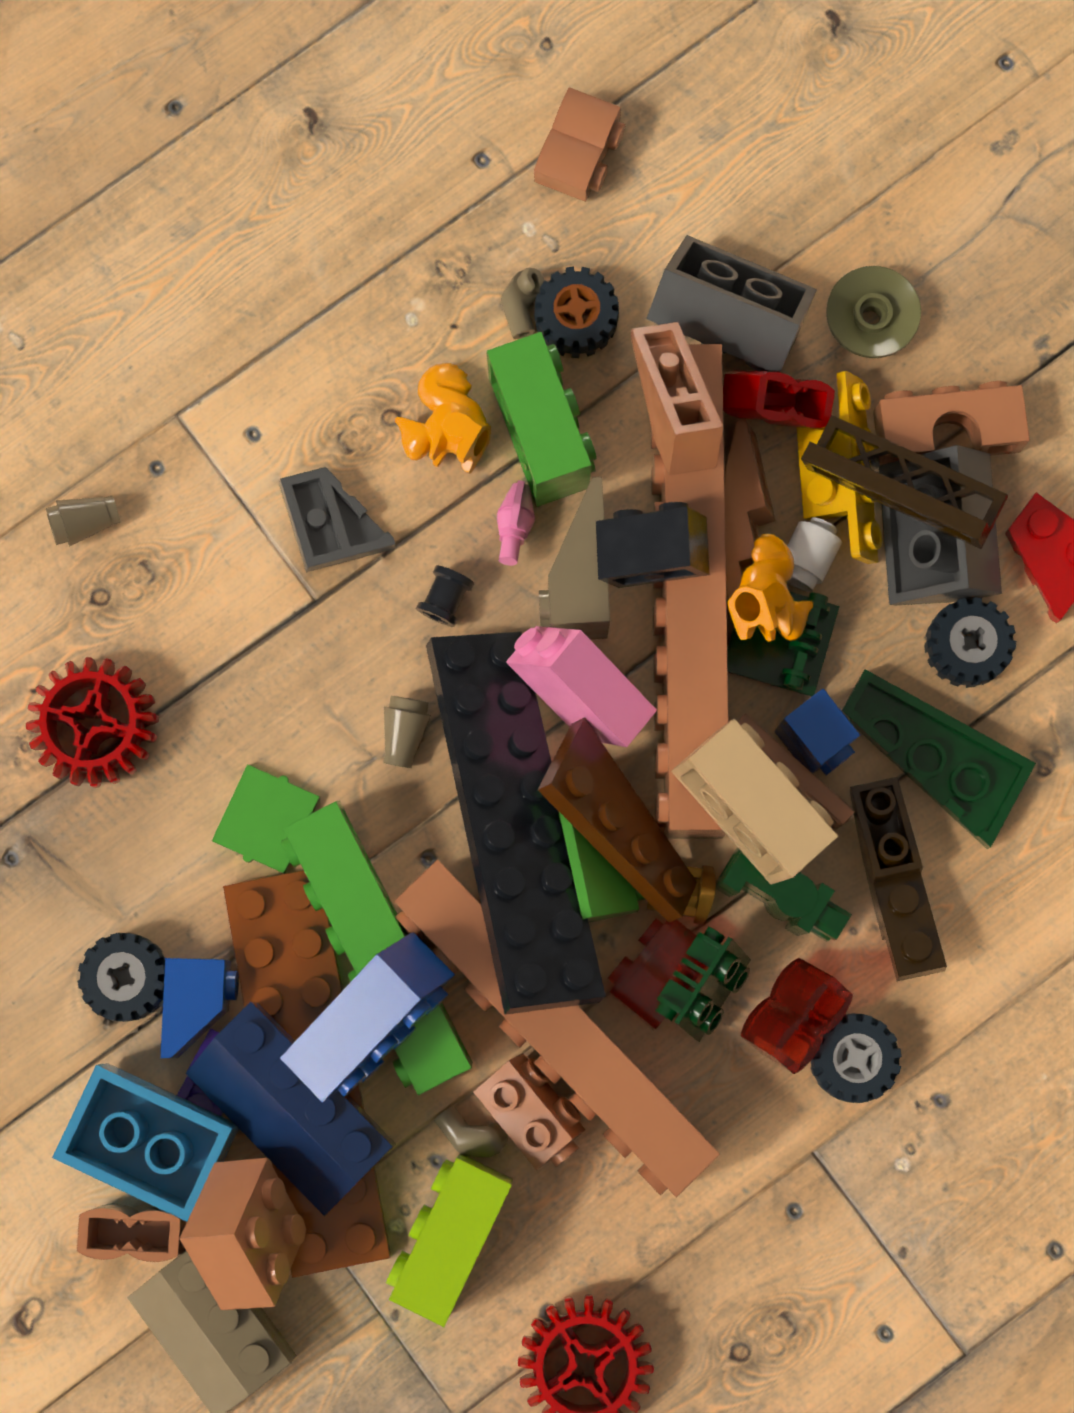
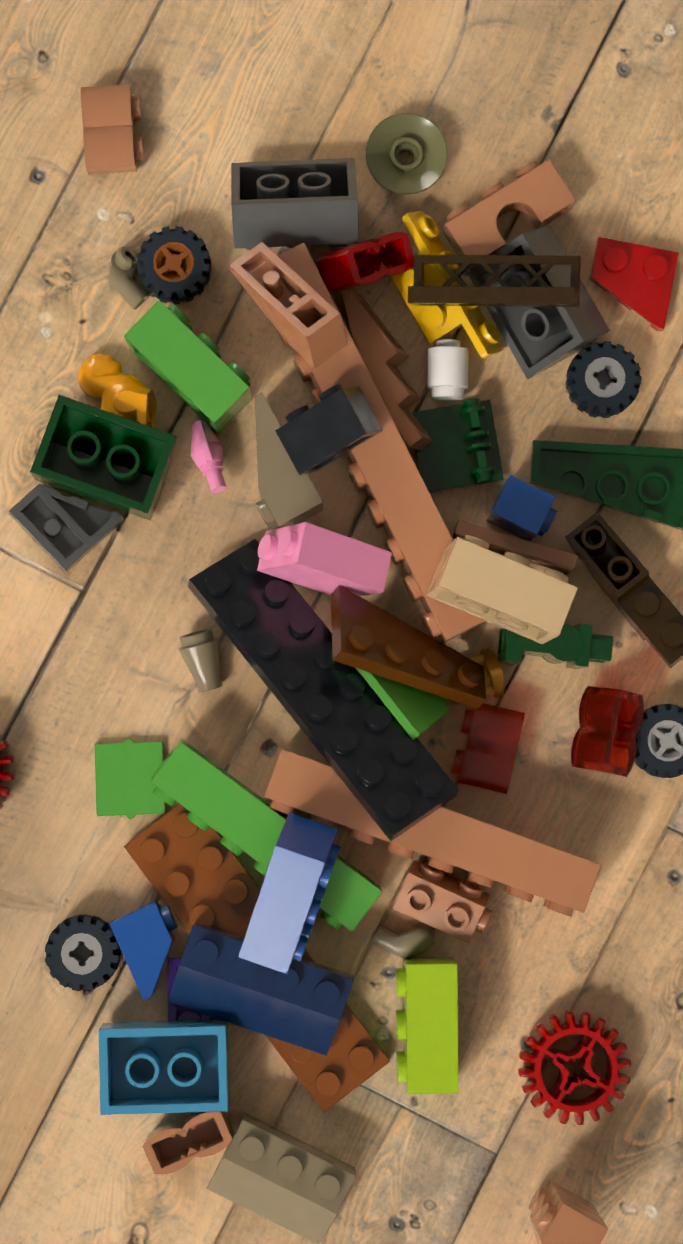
camera: 35 degrees left, 5 degrees up
(244, 1234) = (275, 1099): nougat brick -> none
(405, 471) = (104, 457): none -> dark green slope
(445, 596) = (182, 539): black bush -> none
(726, 972) = (539, 725): dark green hinge -> none
(764, 596) = (430, 424): light orange animal -> none

